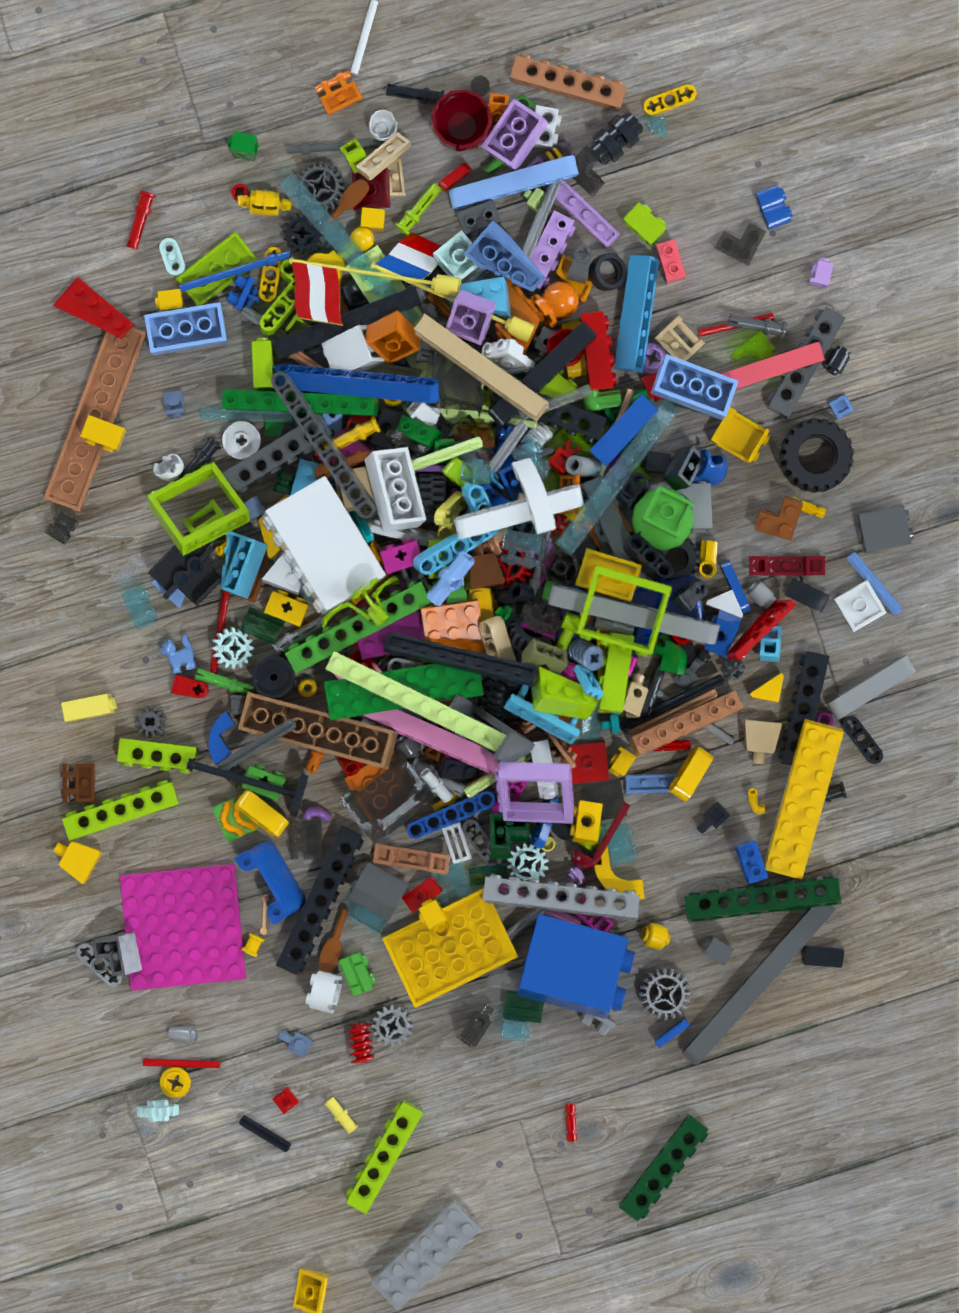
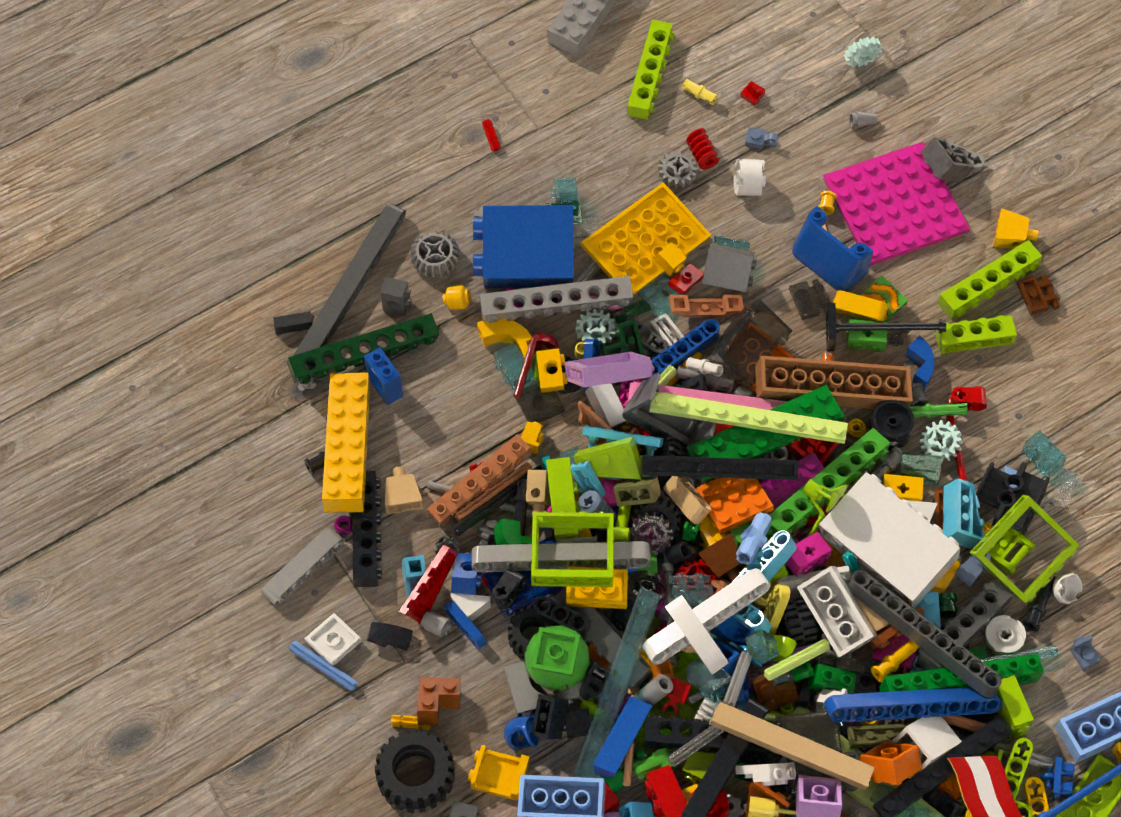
camera: 165 degrees right, 25 degrees down
(89, 707) = (1056, 353): light yellow brick -> none
(150, 728) = (986, 357): dark grey gear -> none
(166, 1085) = (862, 80): yellow gear -> none
(180, 657) = (987, 422): medium blue animal -> none
(181, 1063) = (854, 99): red bar -> none
(257, 745) = (886, 355): dark grey axle -> none
(264, 1133) = (761, 63): black axle -> none
(286, 960) = (790, 196): black brick -> none
(313, 811) = (810, 324): medium lavender arm -> none
(332, 948) = (753, 216): dark orange piece -> none
(356, 973) = (724, 202): bright green brick -> none
(471, 1033) = (601, 182): clear smoke torso -> none
(575, 876) = (547, 328): lavender plate -> none
(590, 763) = (564, 430): red plate -> none
(648, 783) = (495, 429): medium blue tile -> none
(672, 1032) = (419, 224): blue tile -> none
(689, 1125) = (381, 156): dark green brick -> none
(690, 773) = (462, 442): yellow beam -> none
(707, 557) = (500, 643): yellow piece -> none
(714, 817) = (430, 412): black plate -> none
(753, 801) = (392, 433): yellow arm -> none
(770, 690) = (406, 536): yellow slope -> none
(786, 566) = (418, 659): dark red slope -> none
(867, 754) = (298, 509): black beam -> none
(885, 529) = (325, 719): dark grey brick -> none

